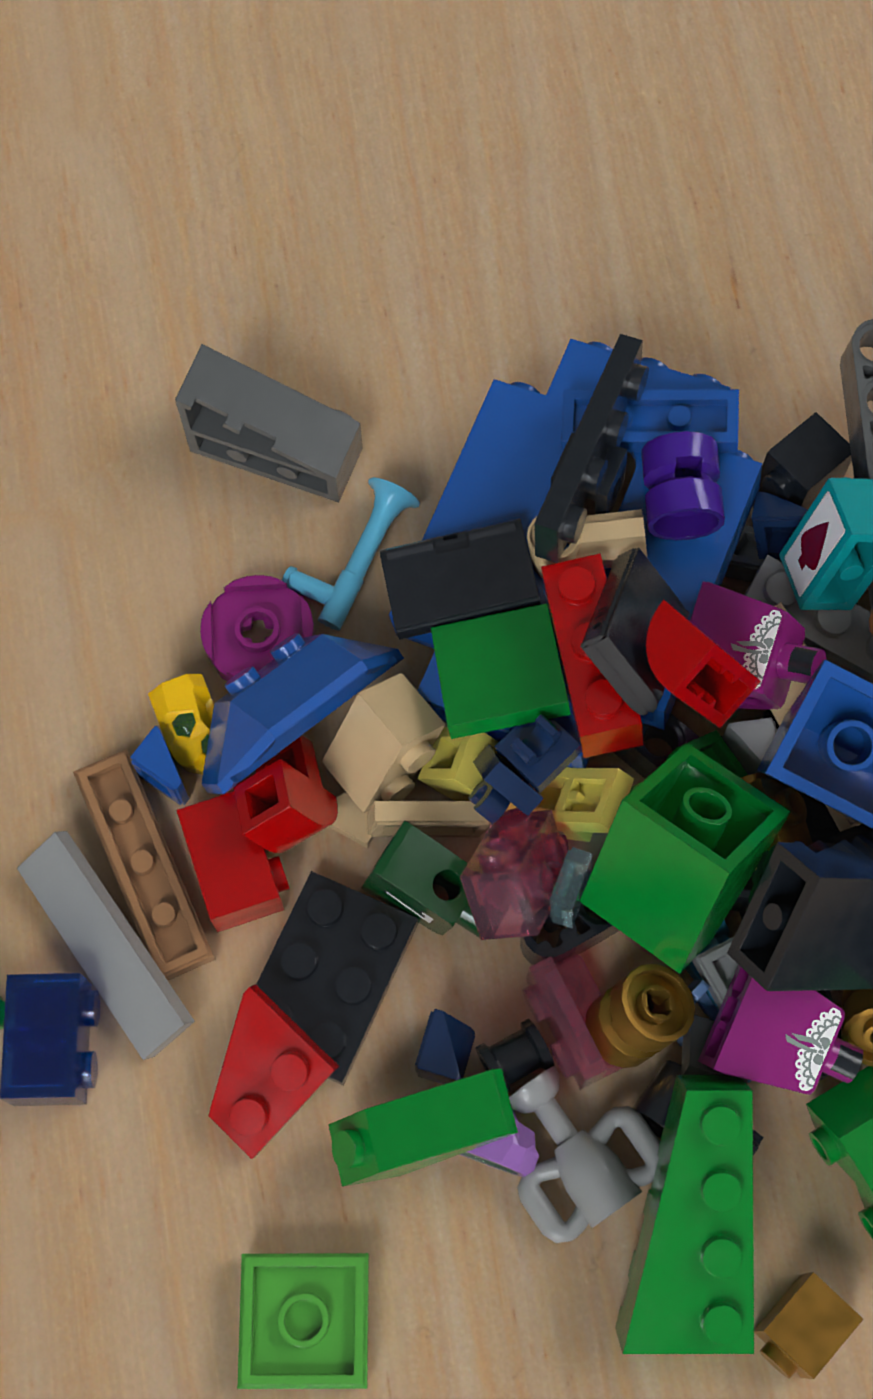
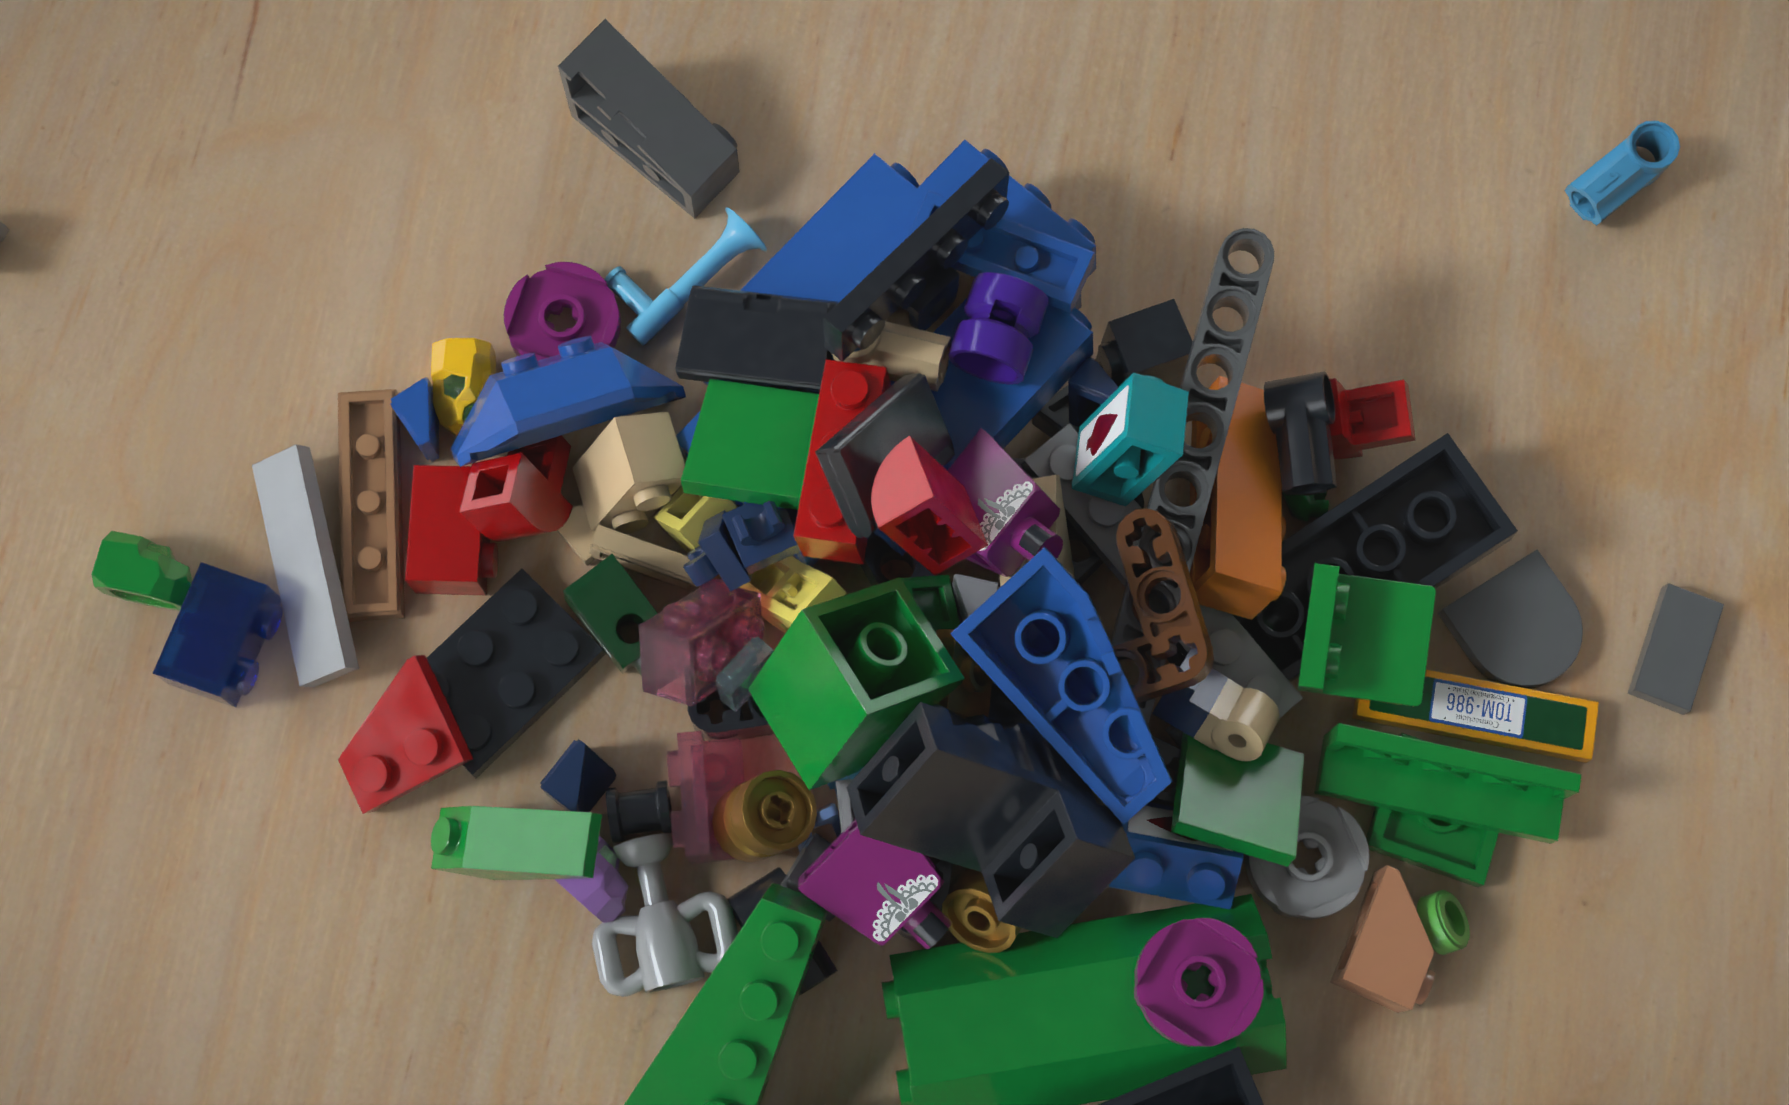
camera: 15 degrees right, 5 degrees up
(304, 1321) = (353, 975): bright green plate -> none

